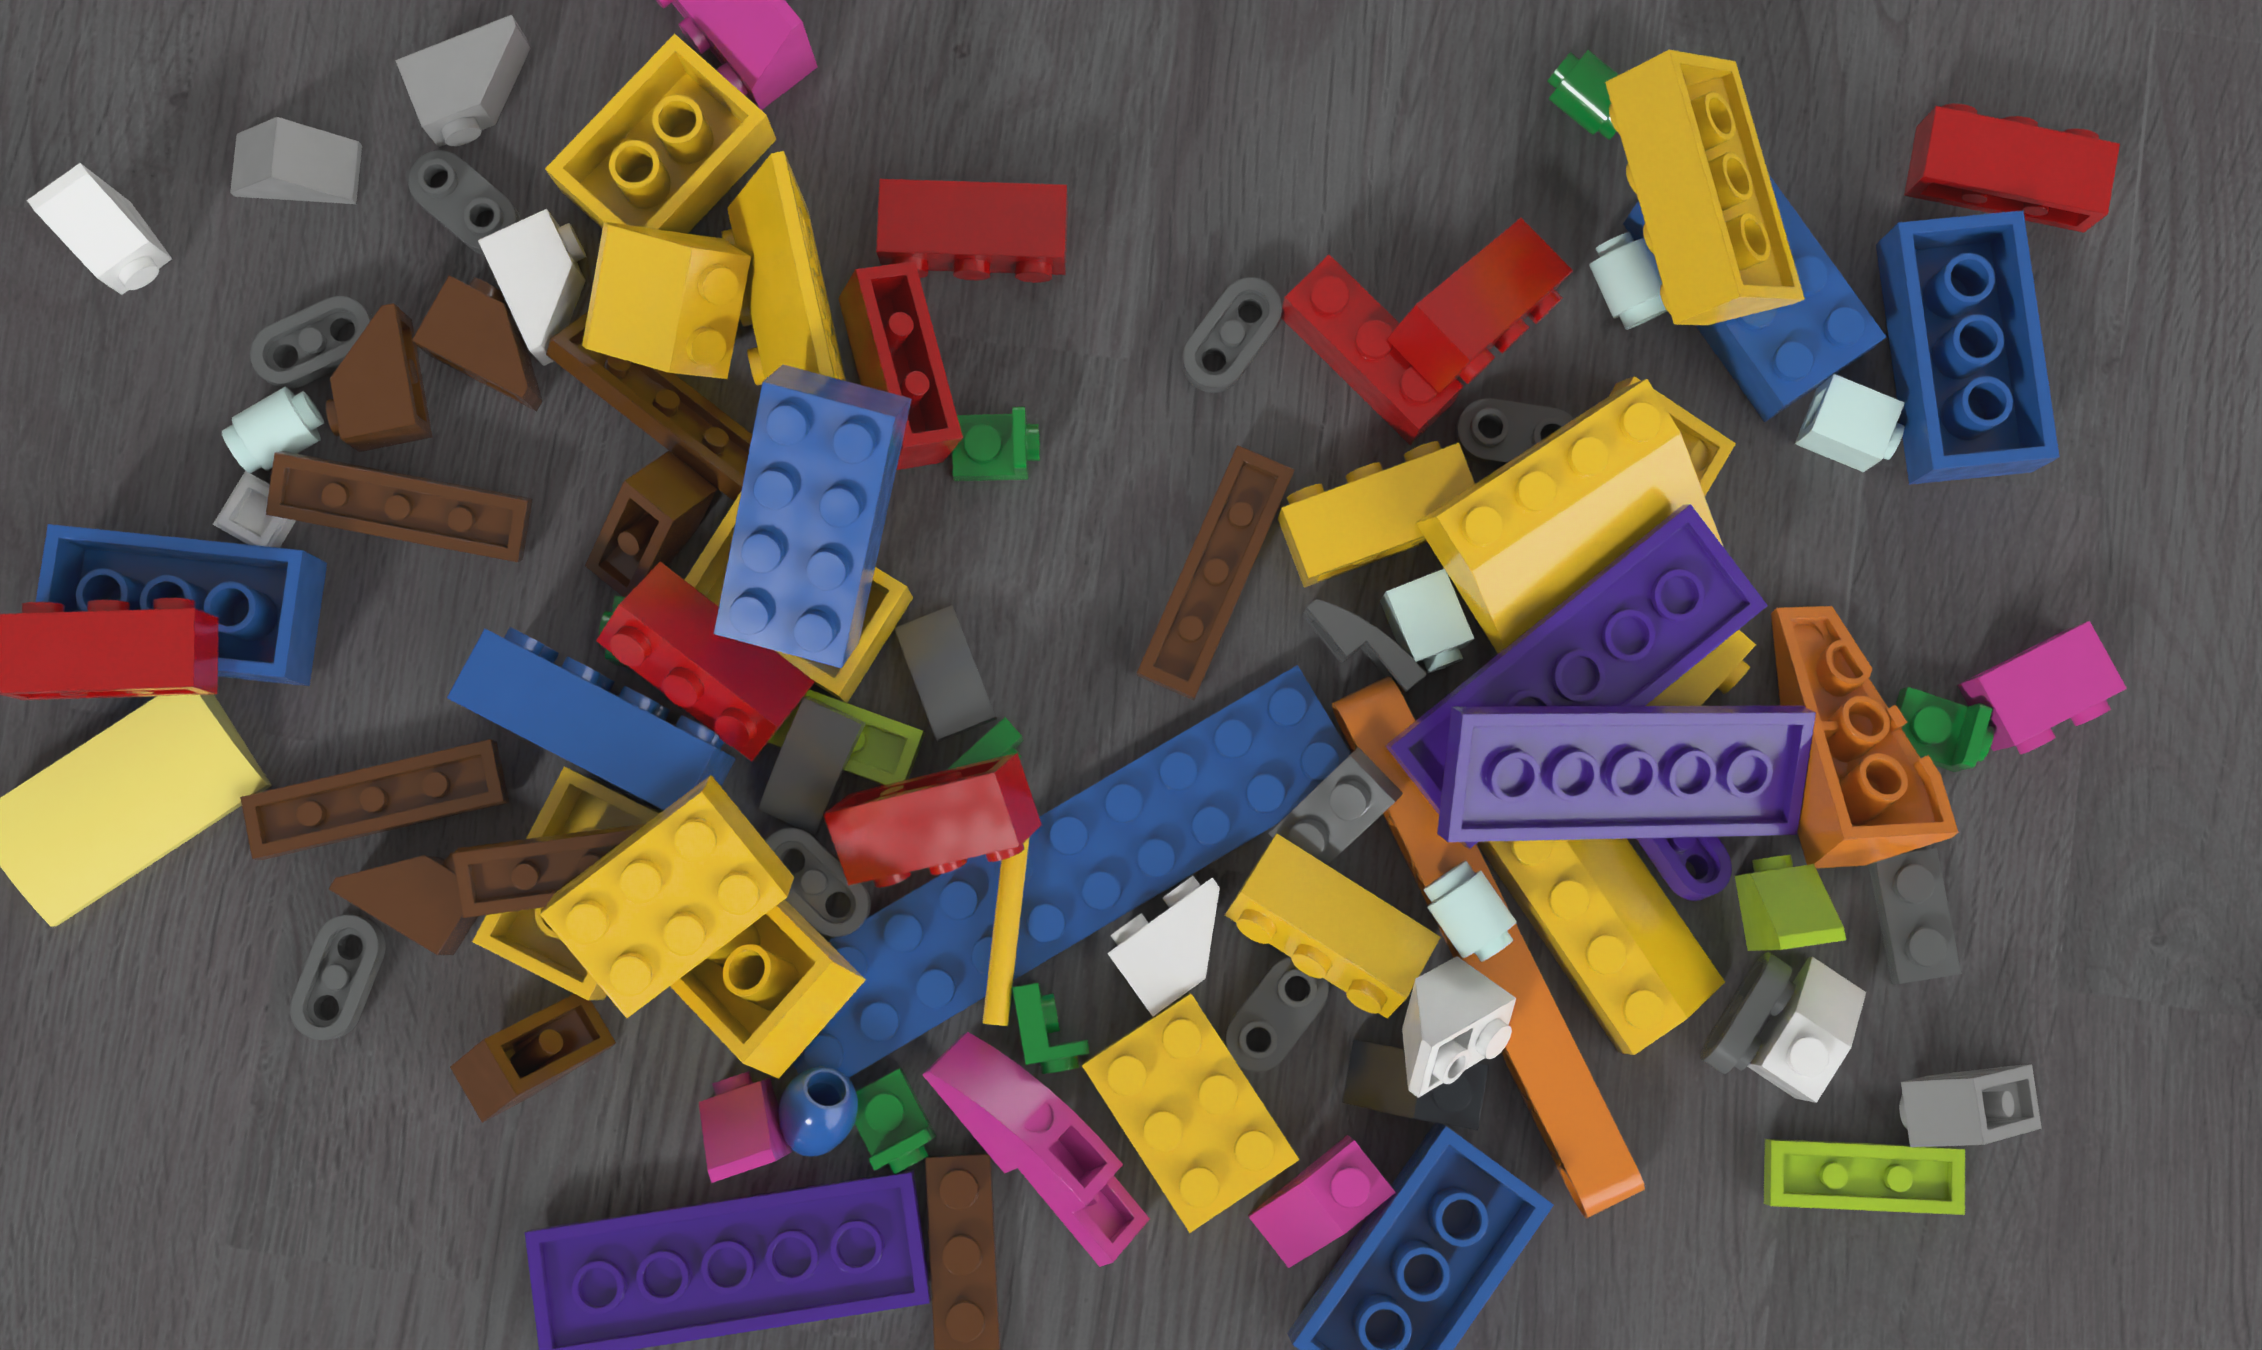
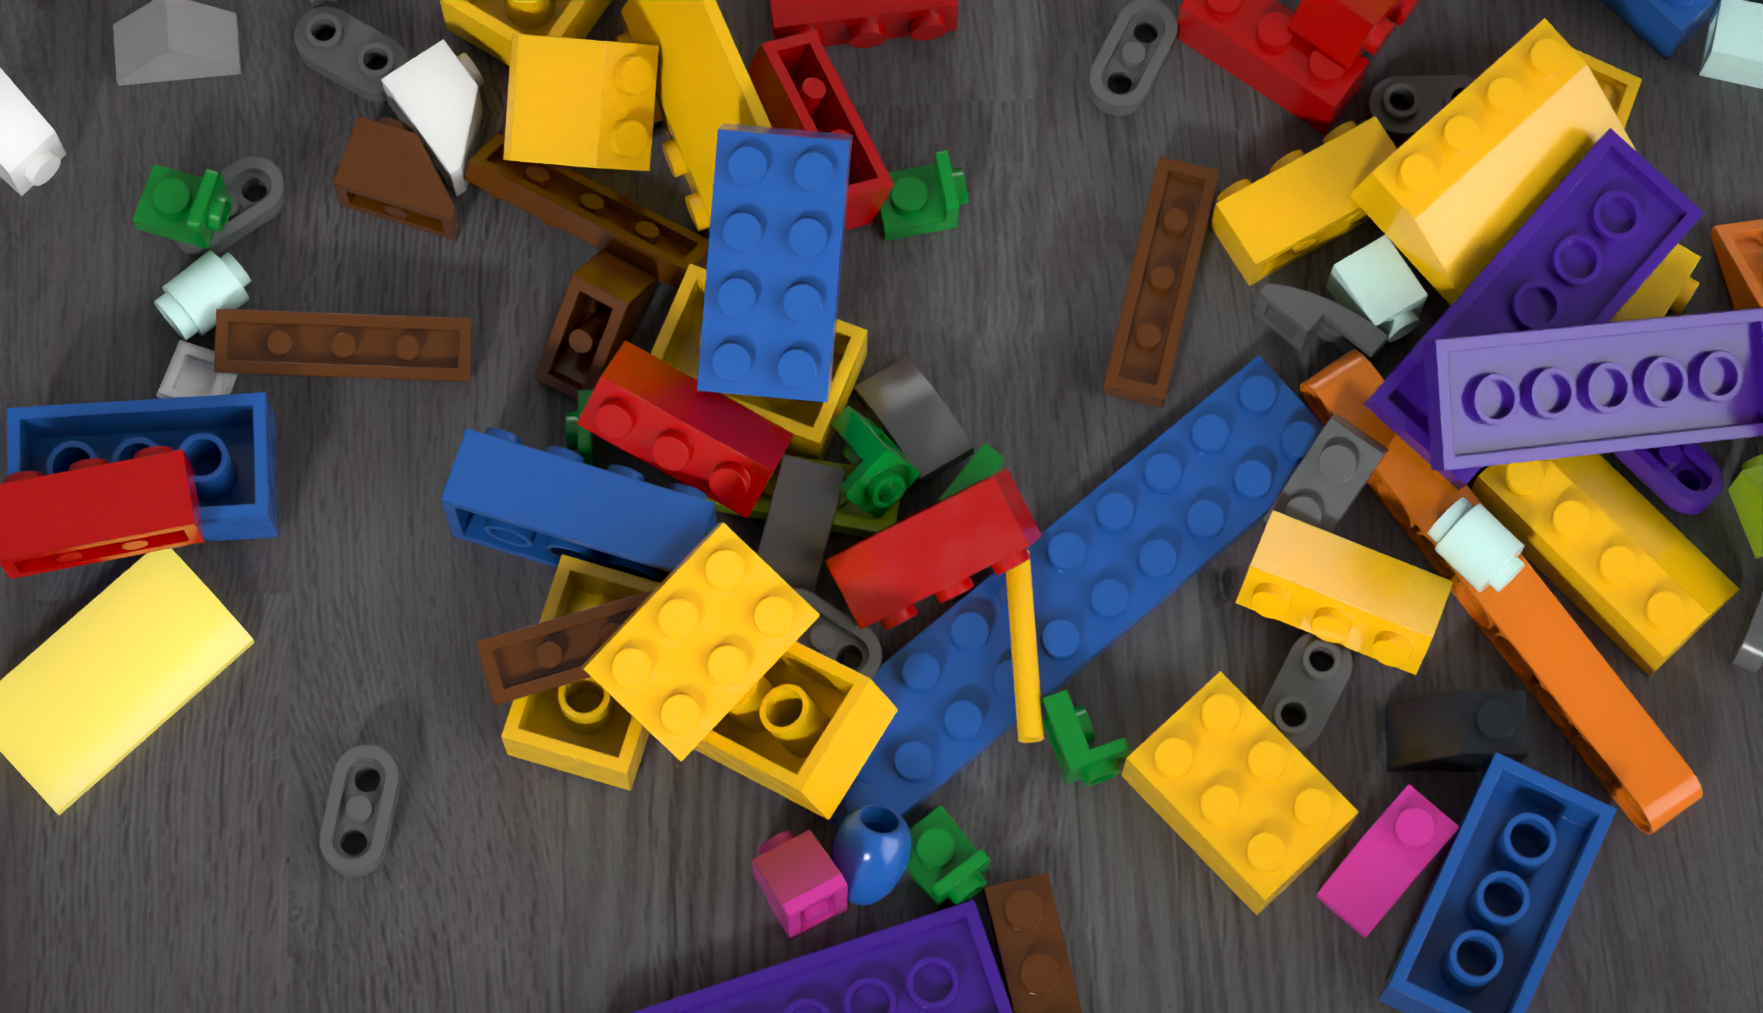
camera: 10 degrees left, 10 degrees down
(263, 338) = (184, 206): none -> green bracket
(374, 799) = (366, 632): reddish brown plate -> none
(380, 386) = (302, 239): reddish brown slope -> none
(413, 898) = (429, 717): reddish brown slope -> none
(531, 1055) = (569, 852): reddish brown slope -> none
(897, 718) = (880, 465): none -> green bracket
(1044, 1138) = (1087, 833): dark pink slope -> none
(1172, 950) = (1188, 643): white slope -> none
(1452, 1024) = (1483, 654): white slope -> none

